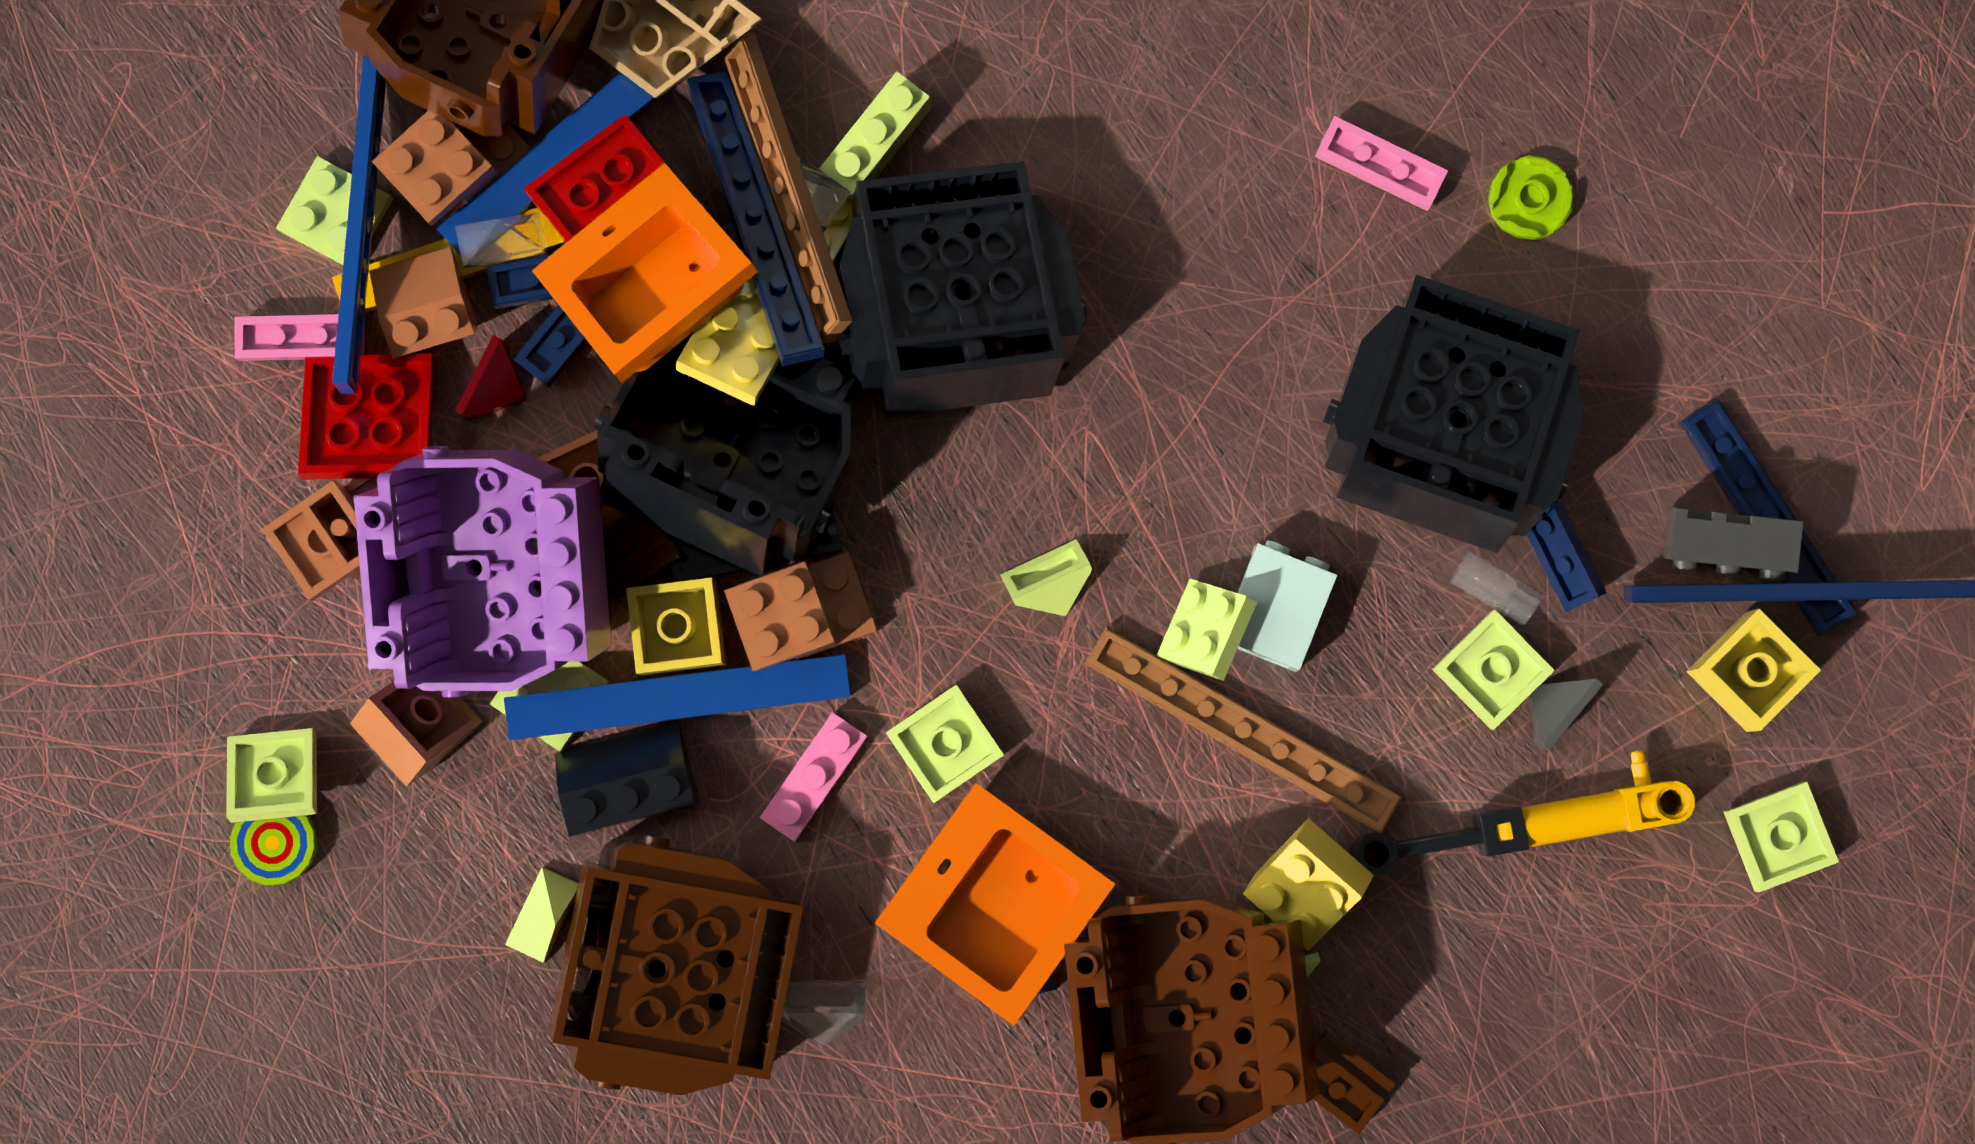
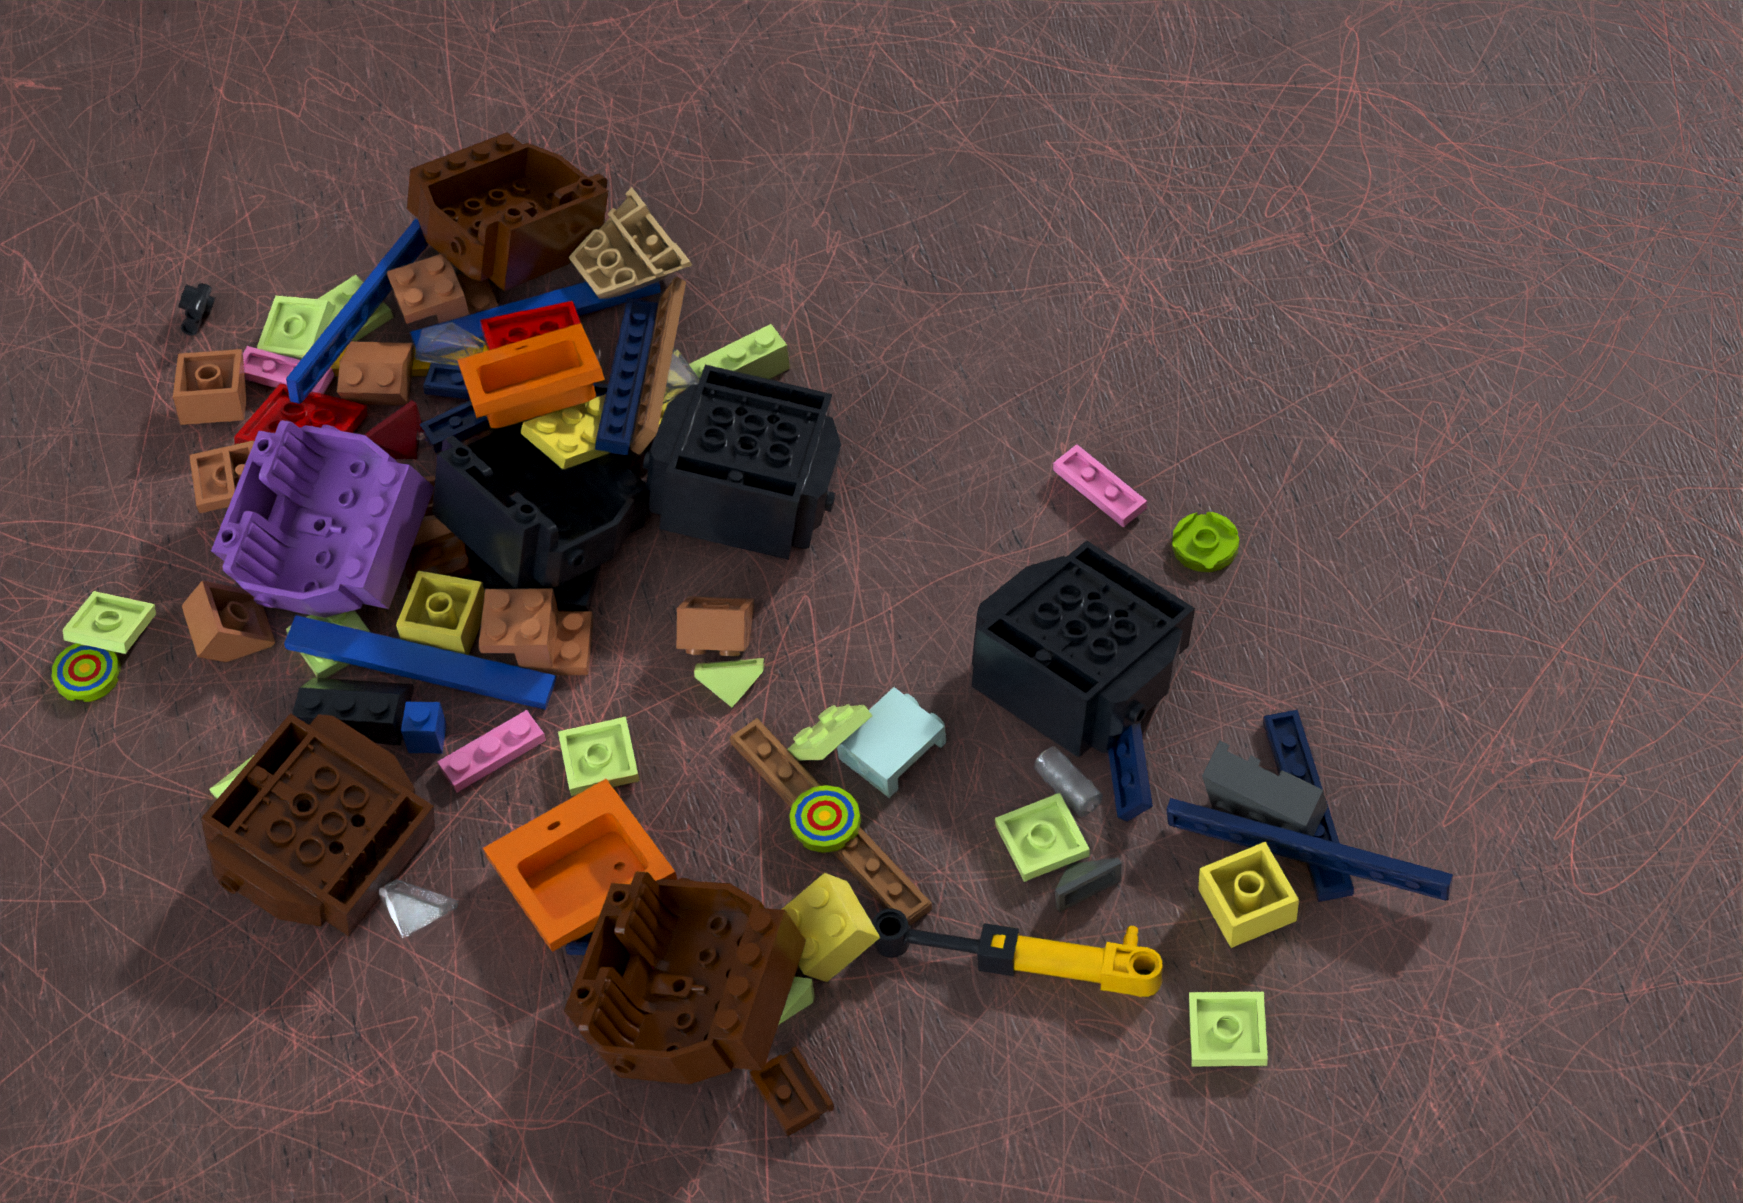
camera: 25 degrees right, 30 degrees down
(133, 269) = (195, 303): none -> black plate
(220, 397) = (210, 387): none -> nougat slope
(283, 271) = (294, 325): none -> yellowish green plate
(725, 782) = (424, 727): none -> blue brick
(1004, 517) = (714, 625): none -> nougat slope
(1244, 738) = (825, 818): none -> lime tile

